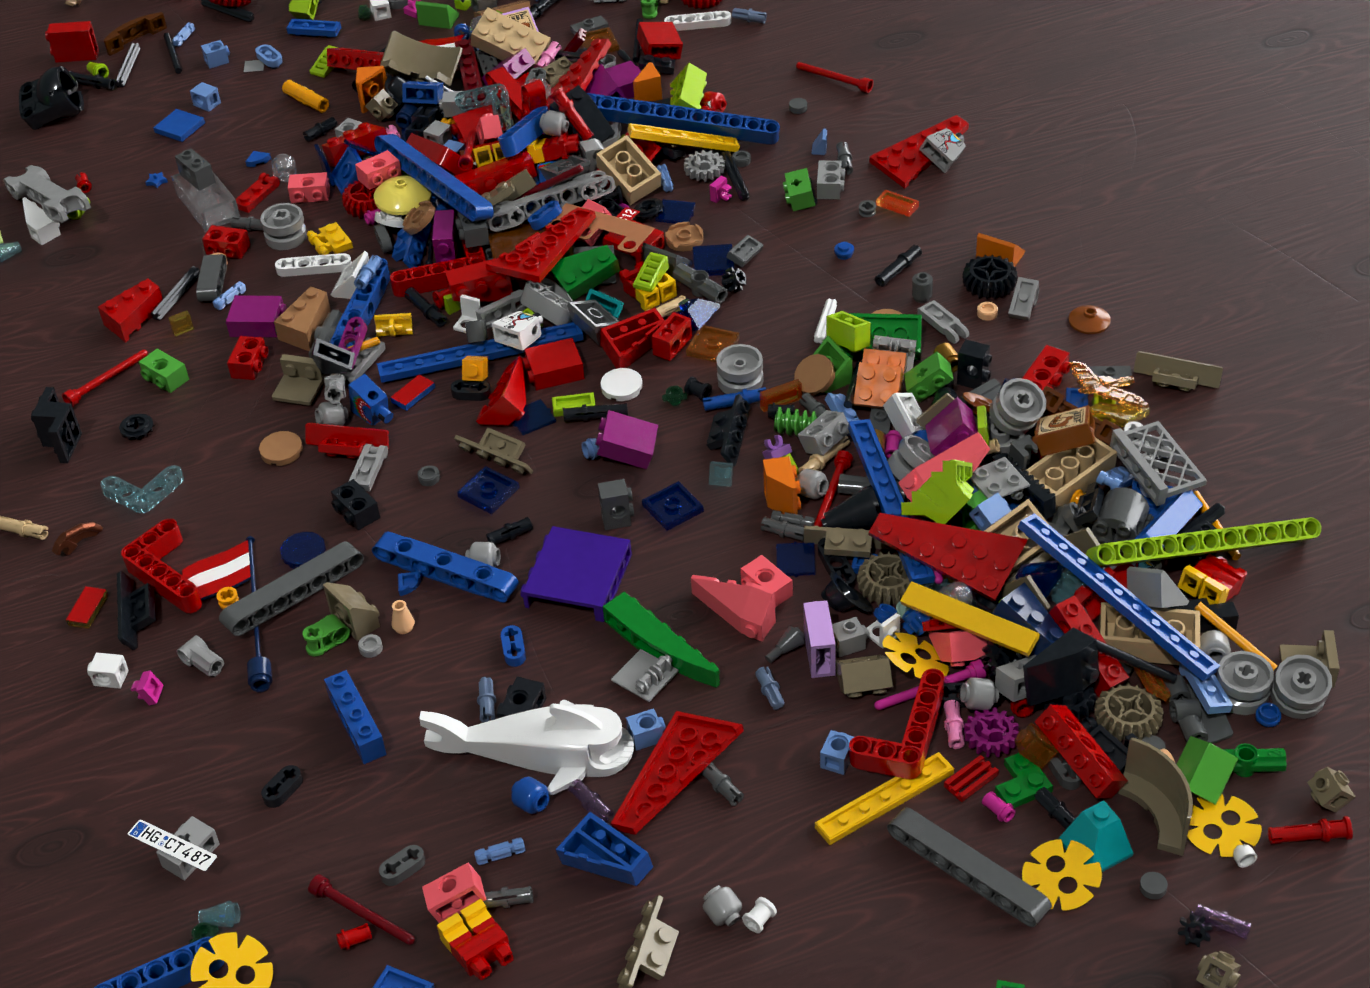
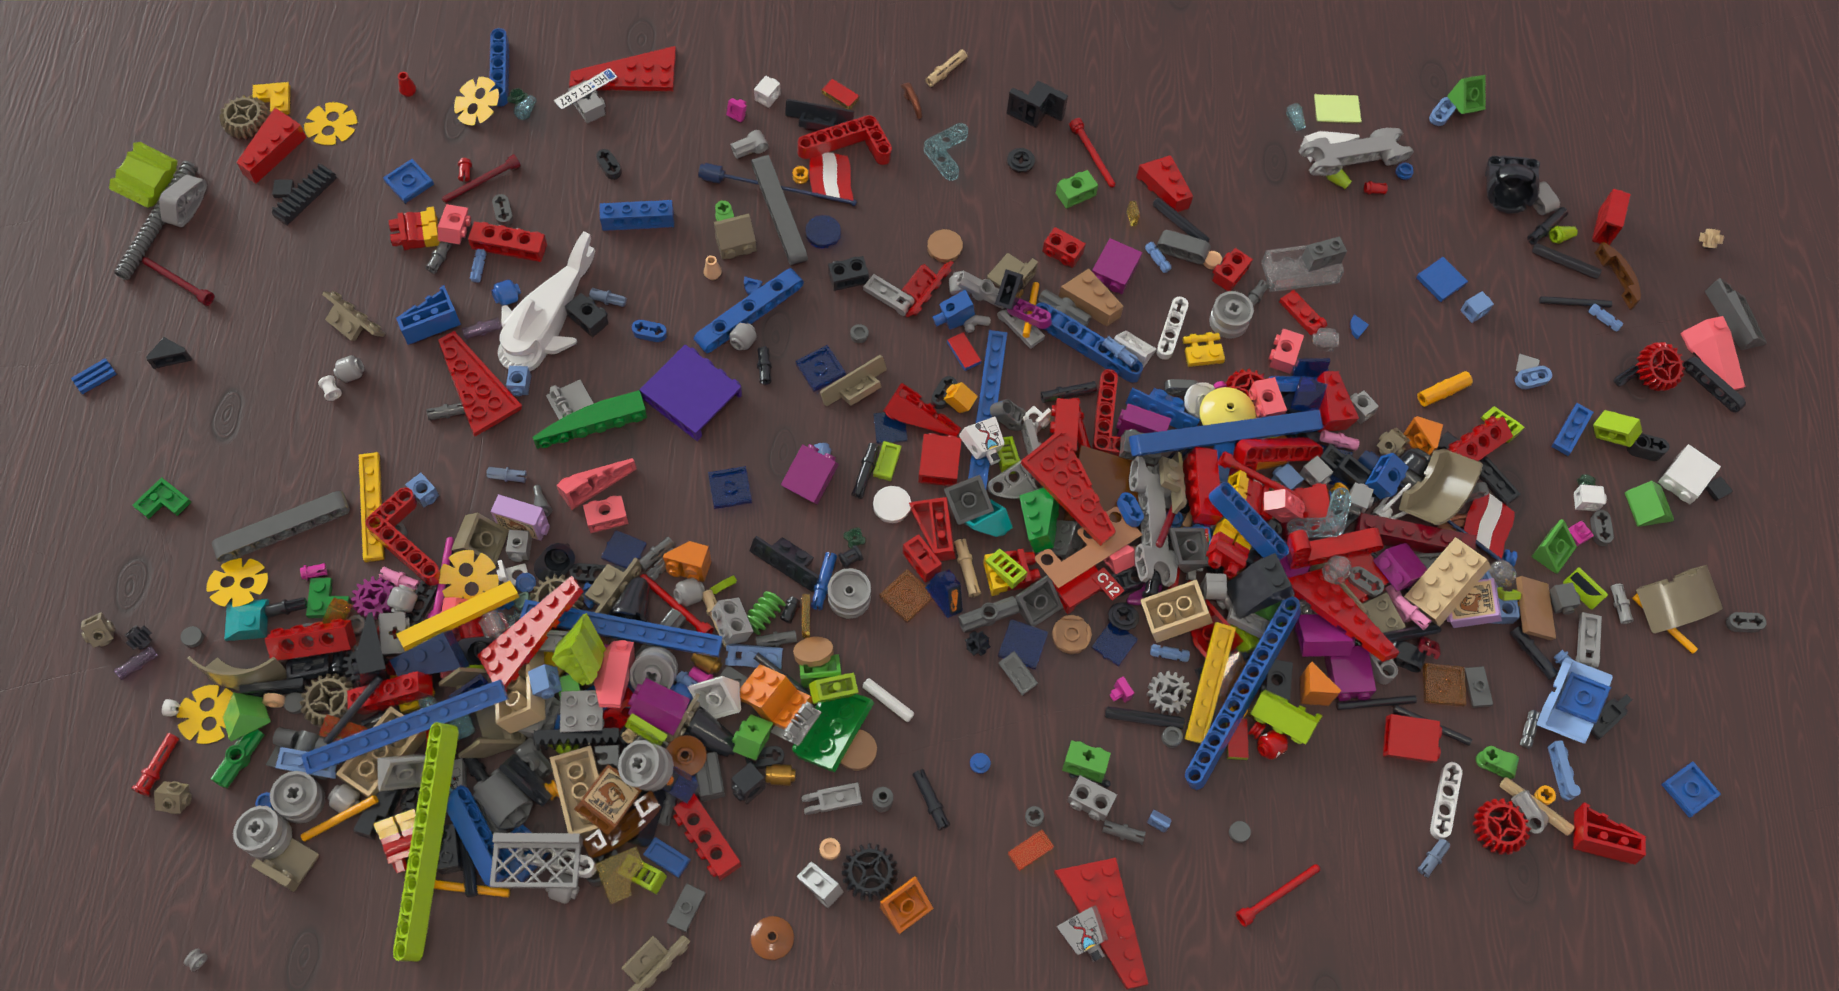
camera: 105 degrees right, 20 degrees up
(54, 170) = (1404, 171): none -> blue plate
(107, 814) = (637, 73): none -> red wing
(156, 180) = (1360, 244): blue piece -> none
(215, 53) = (1552, 332): medium blue brick -> none
(320, 129) = (1383, 387): black axle -> none
(370, 646) = (703, 246): light grey tile -> none
(393, 324) = (1052, 357): yellow hips -> none
(418, 218) = (1175, 409): medium nougat tile -> none
(449, 825) = (515, 247): none -> red brick
(554, 123) = (1249, 550): light grey head -> none
(566, 106) = (1257, 562): red pin -> none
(615, 504) = (739, 436): dark grey brick -> none
(663, 65) = (1371, 722): black plate -> none
(720, 473) = (739, 531): clear light blue tile -> none
(777, 450) = (741, 583): medium lavender tile -> none
(968, 775) = (347, 554): red tile -> none
(1105, 386) = (661, 879): clear orange bar -> none
(1116, 478) = (546, 820): medium blue plate -> none

